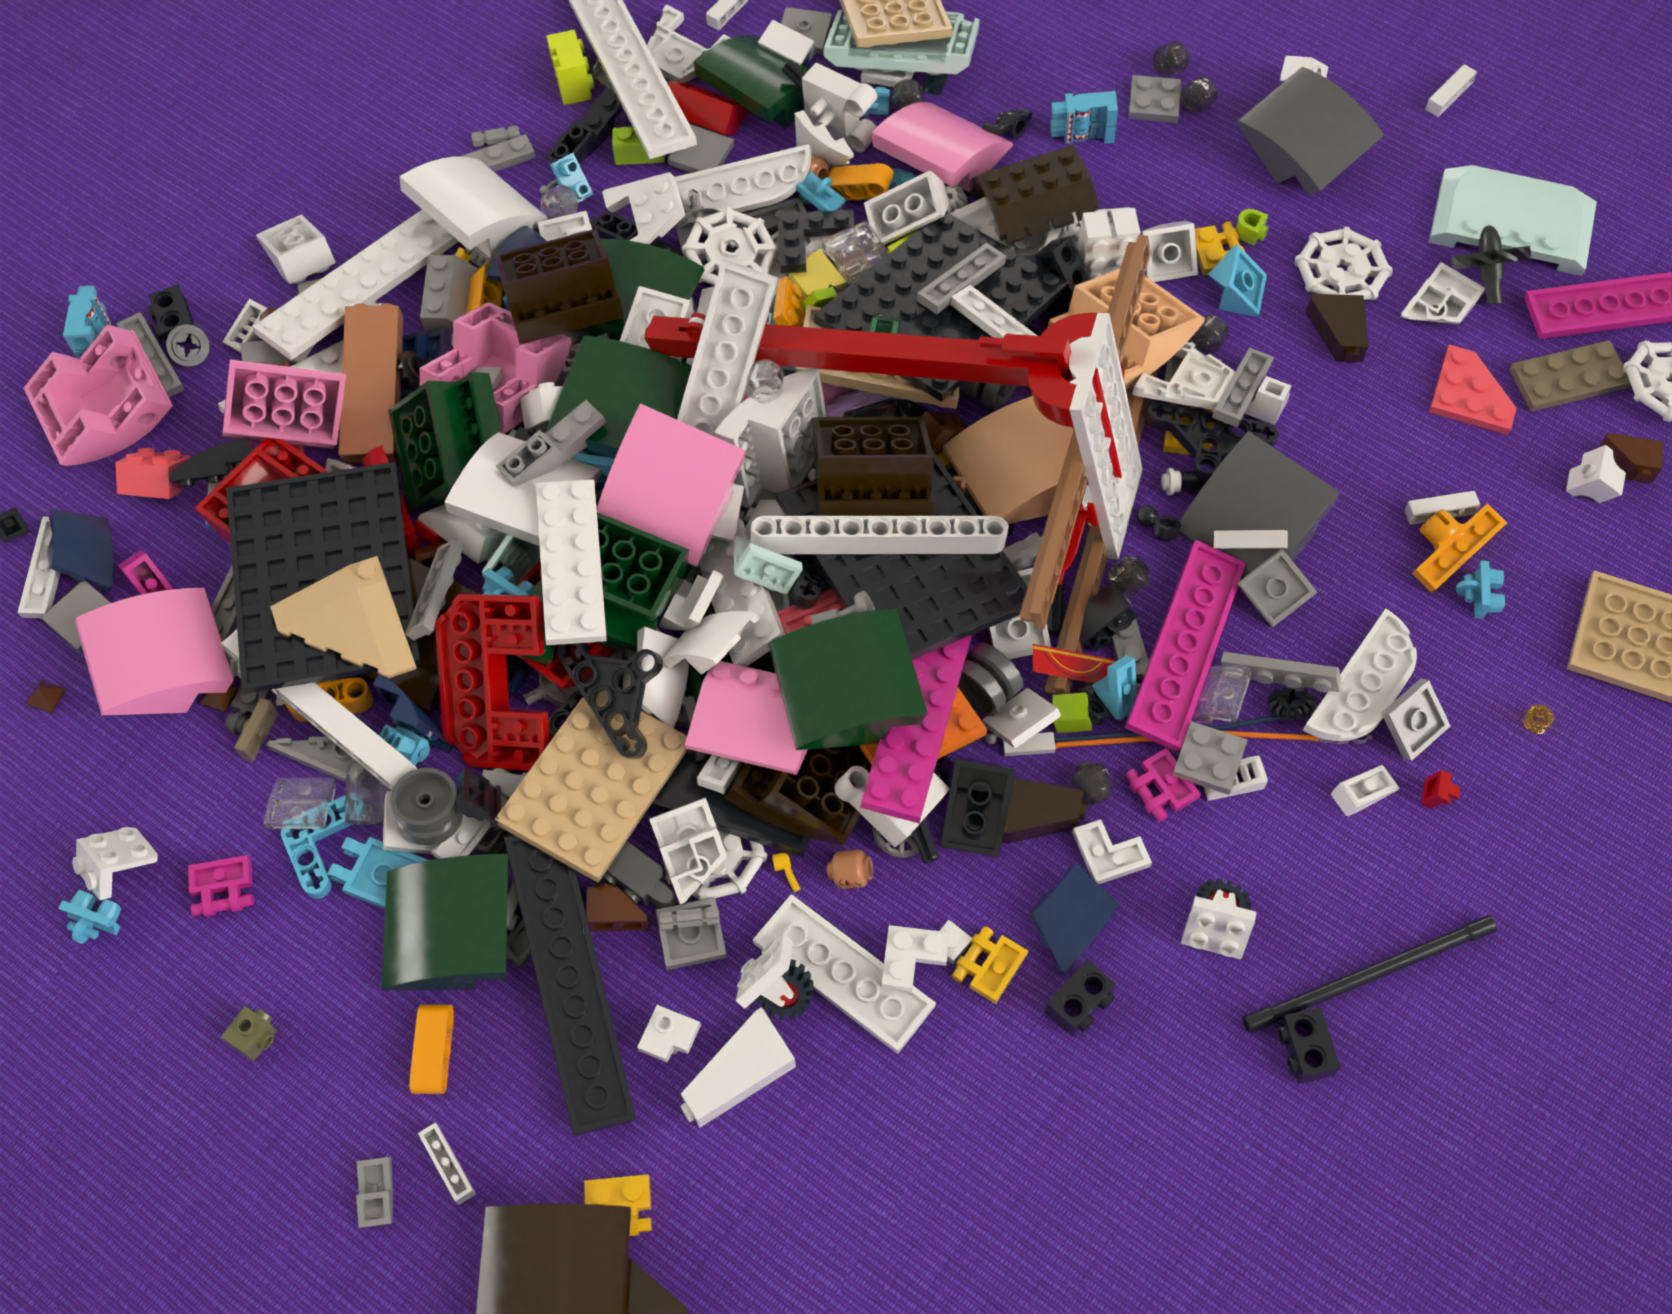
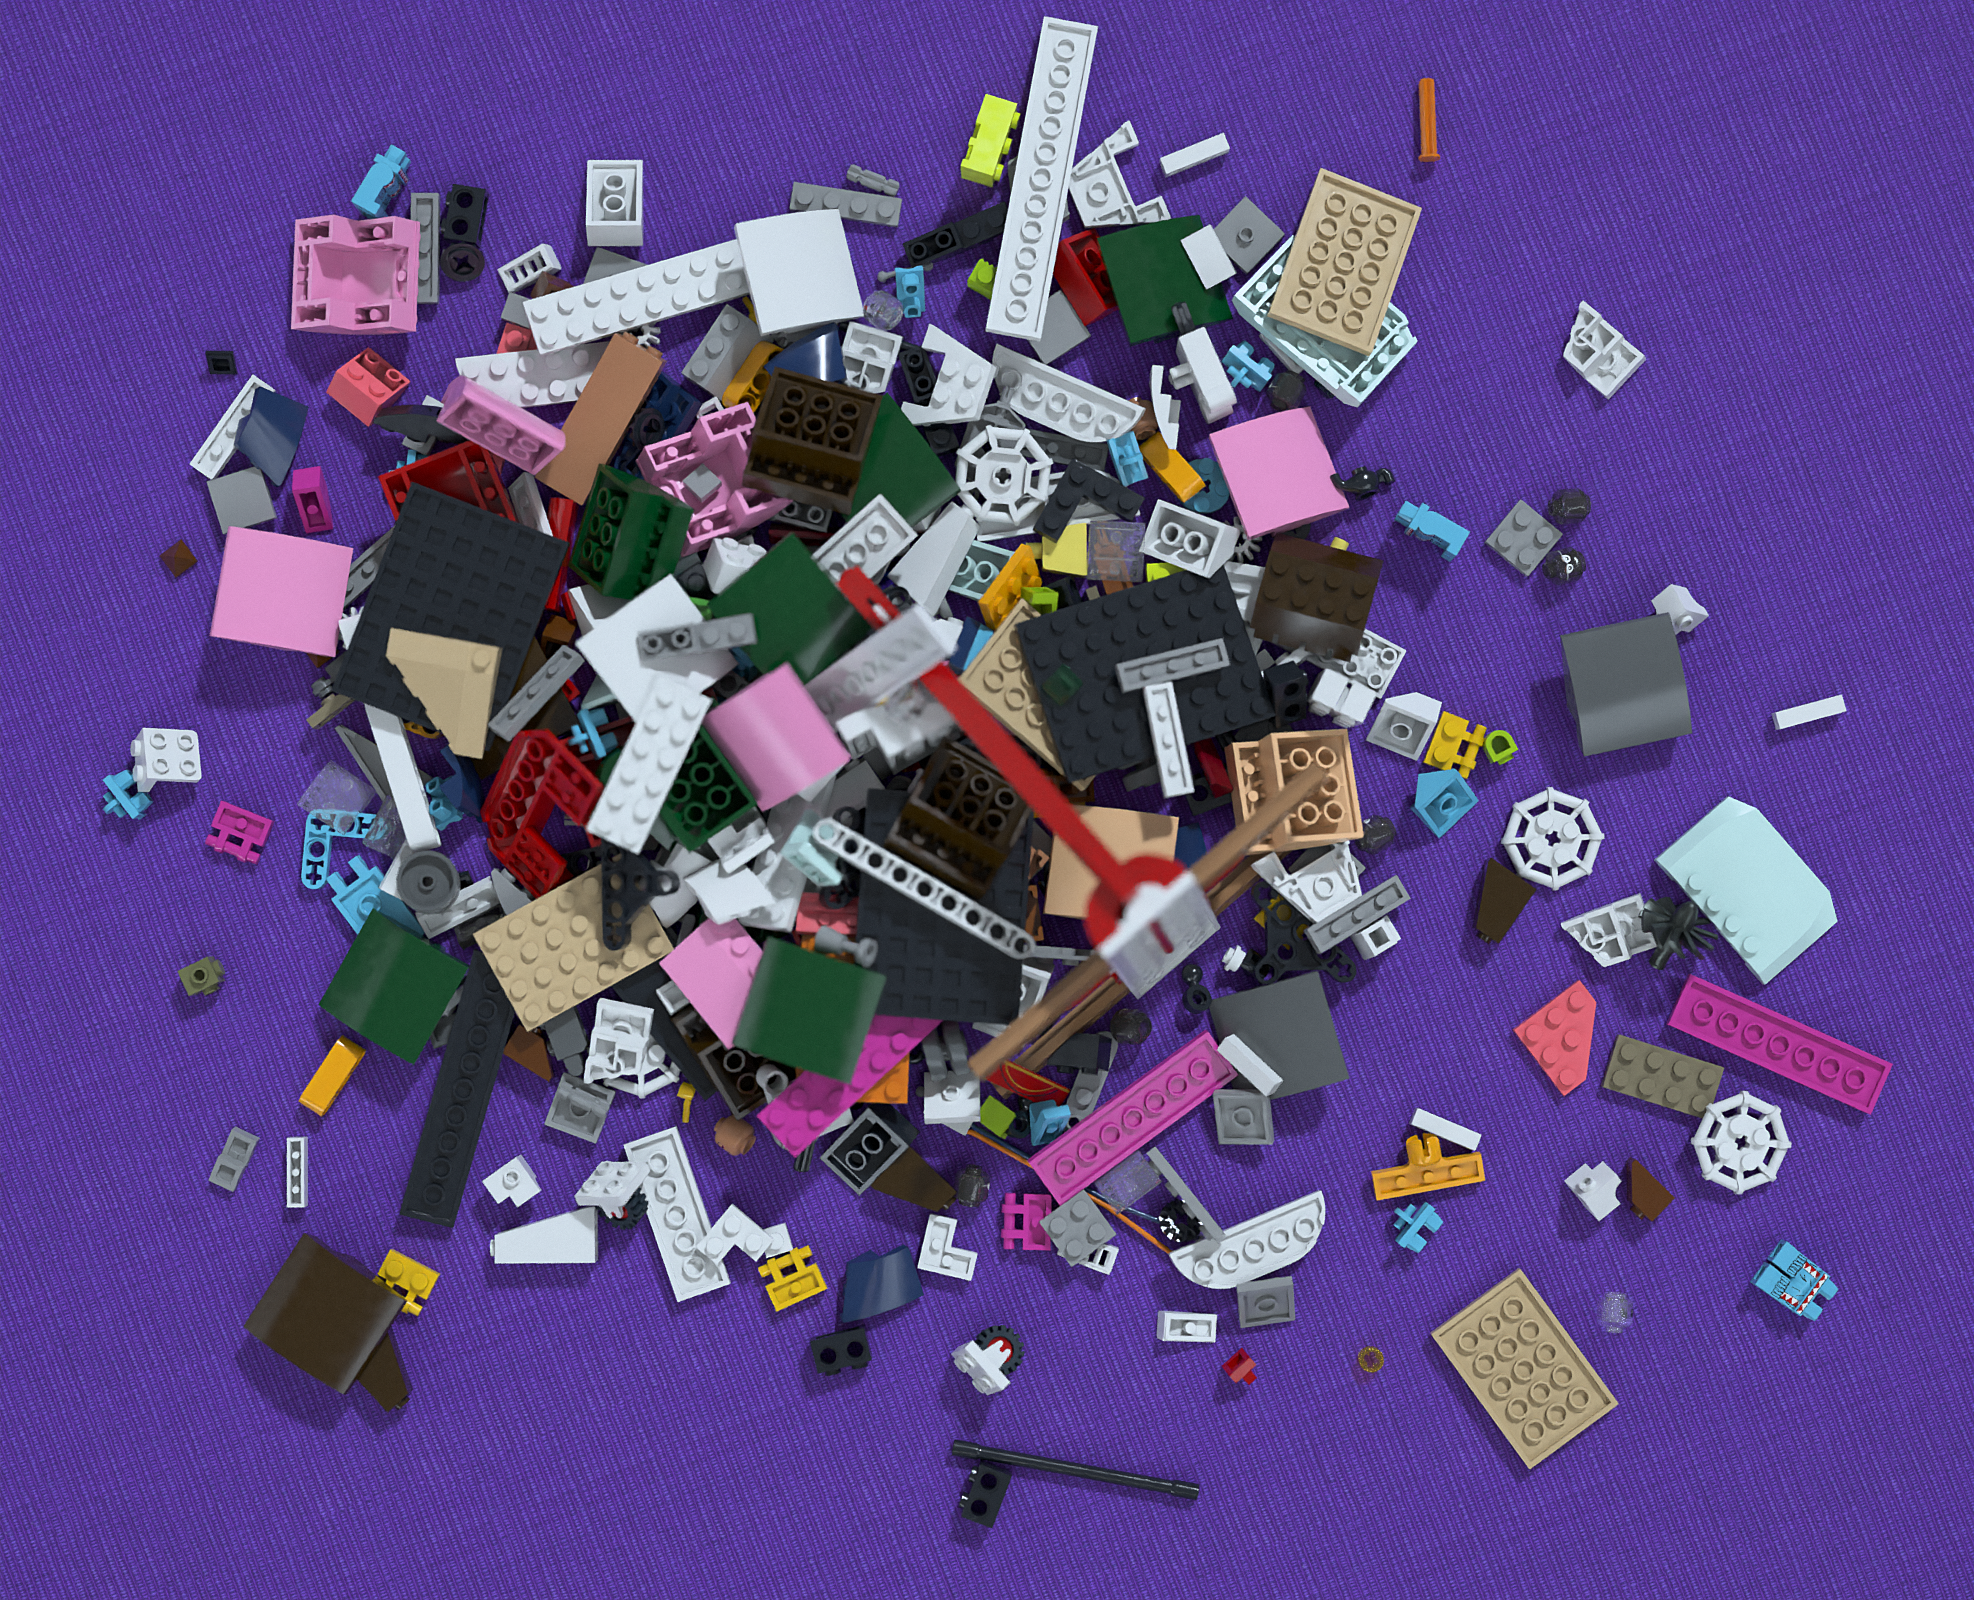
camera: 30 degrees right, 25 degrees up
(477, 797) = (472, 903): black plate -> none

